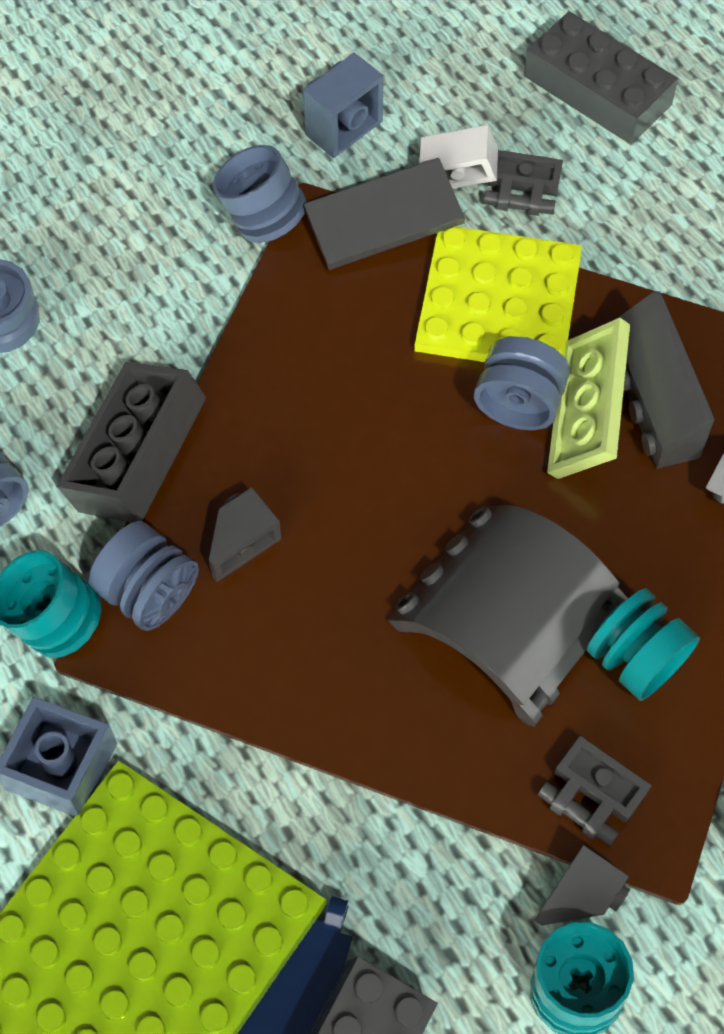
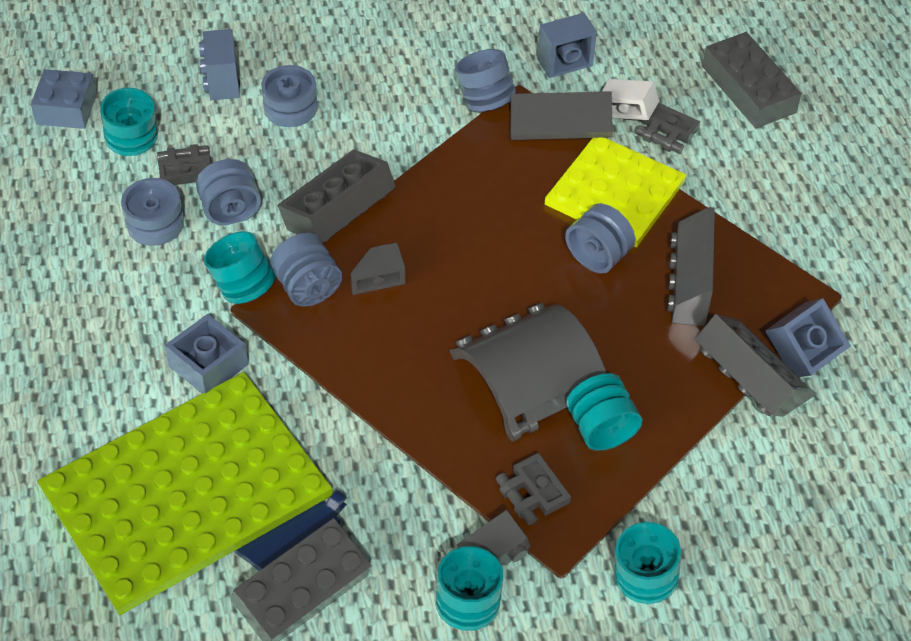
camera: 20 degrees right, 10 degrees down
(591, 405) = (641, 262): yellowish green plate -> none

